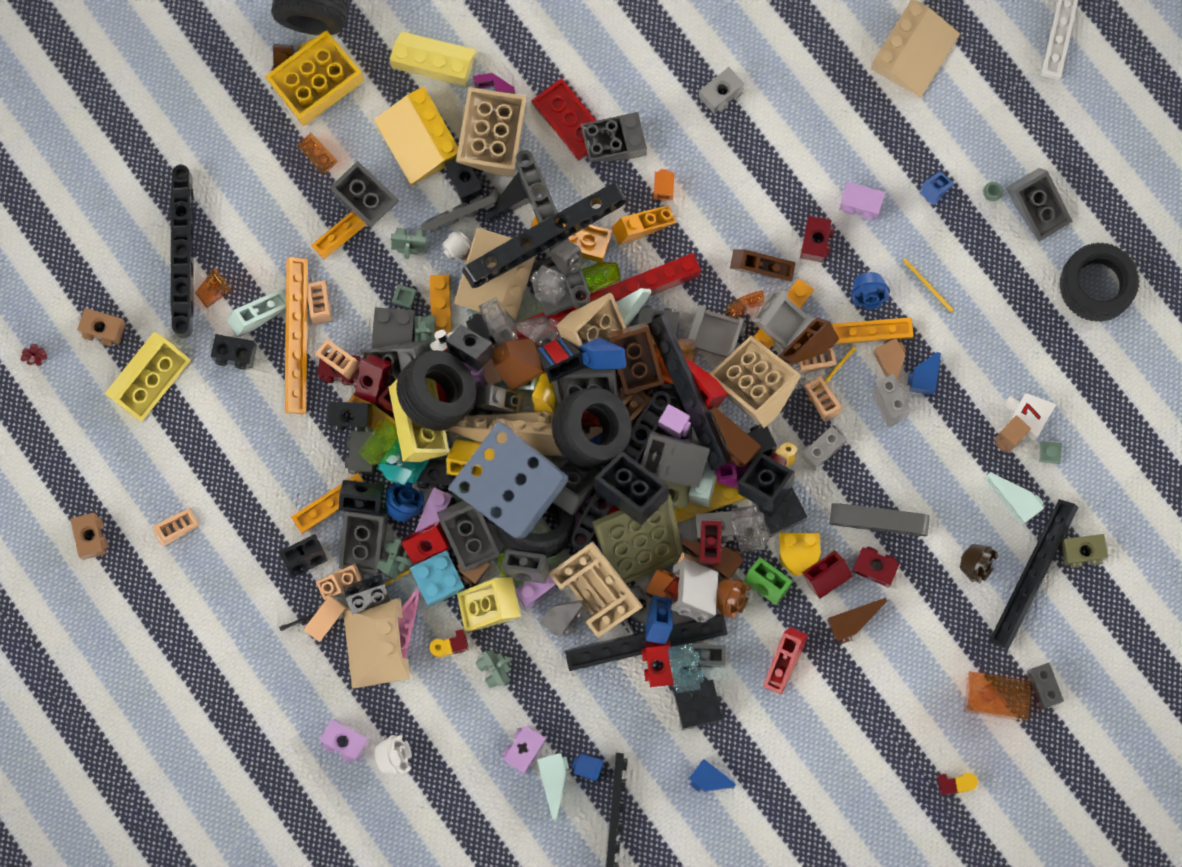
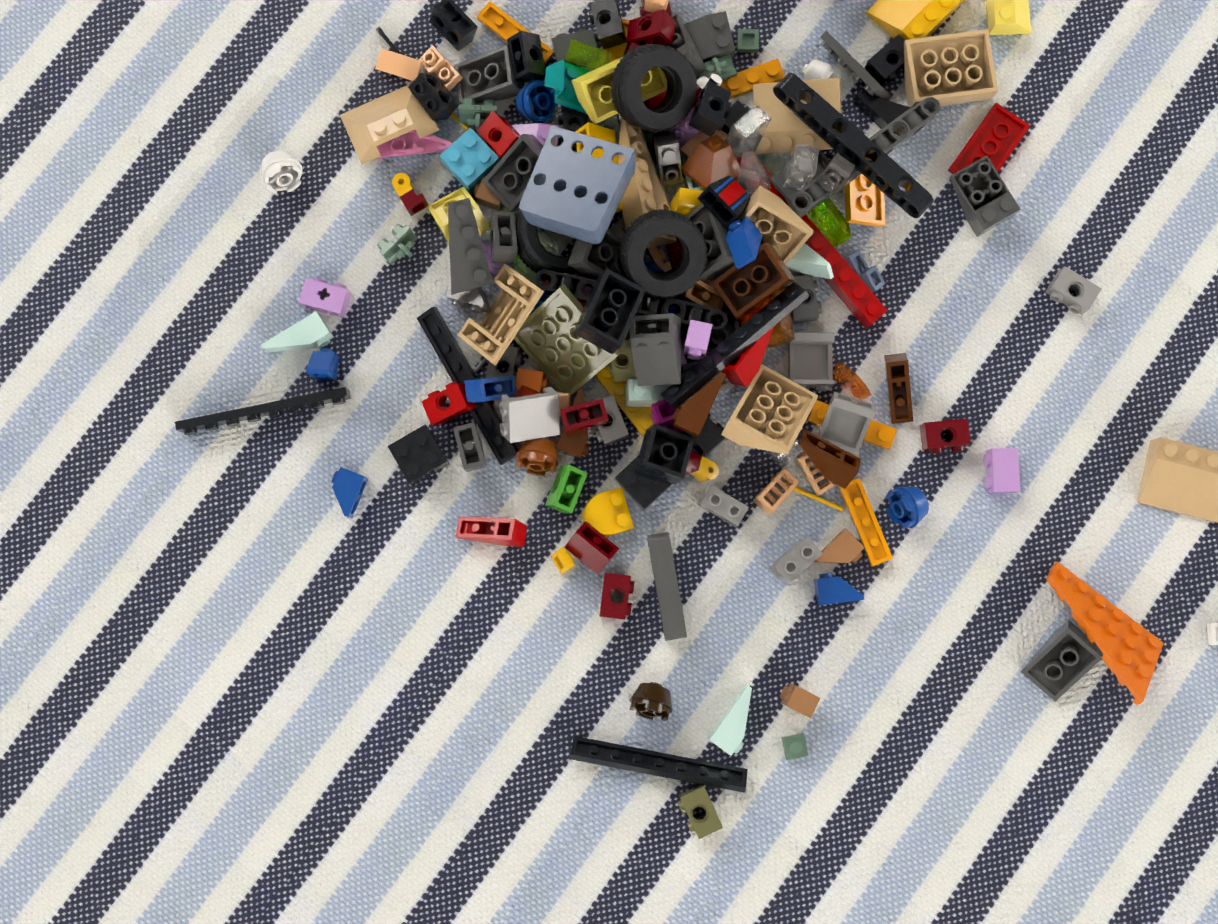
camera: 70 degrees right, 5 degrees up
(356, 741) = (288, 132): lavender brick -> none
(409, 244) = (803, 29): sand green hips -> none
(490, 80) = (1002, 54): magenta slope -> none
(530, 602) = (467, 256): none -> dark grey wing
(642, 224) = (902, 253): light orange slope -> none
(653, 259) = (870, 276): none -> sand blue slope
(664, 185) = (950, 262): orange brick -> none
(685, 679) = (446, 428): clear light blue brick -> none
(750, 539) = (613, 453): clear brick -> none
(830, 604) = (562, 560): none -> yellow plate
(849, 623) = (549, 586): reddish brown slope -> none
(928, 285) = (921, 588): yellow axle -> none
(936, 187) = (1043, 545): blue slope -> none
(956, 785) = (416, 749): leg -> none
(993, 191) = (1058, 608): sand green plate -> none
(997, 696) = (518, 761): clear orange slope -> none
(1032, 411) = (830, 713): white torso -> none
(1039, 148) = (1126, 645): none -> orange wing
(1045, 686) = (543, 808): dark grey brick -> none
(1111, 257) = (1029, 749): black tyre -> none

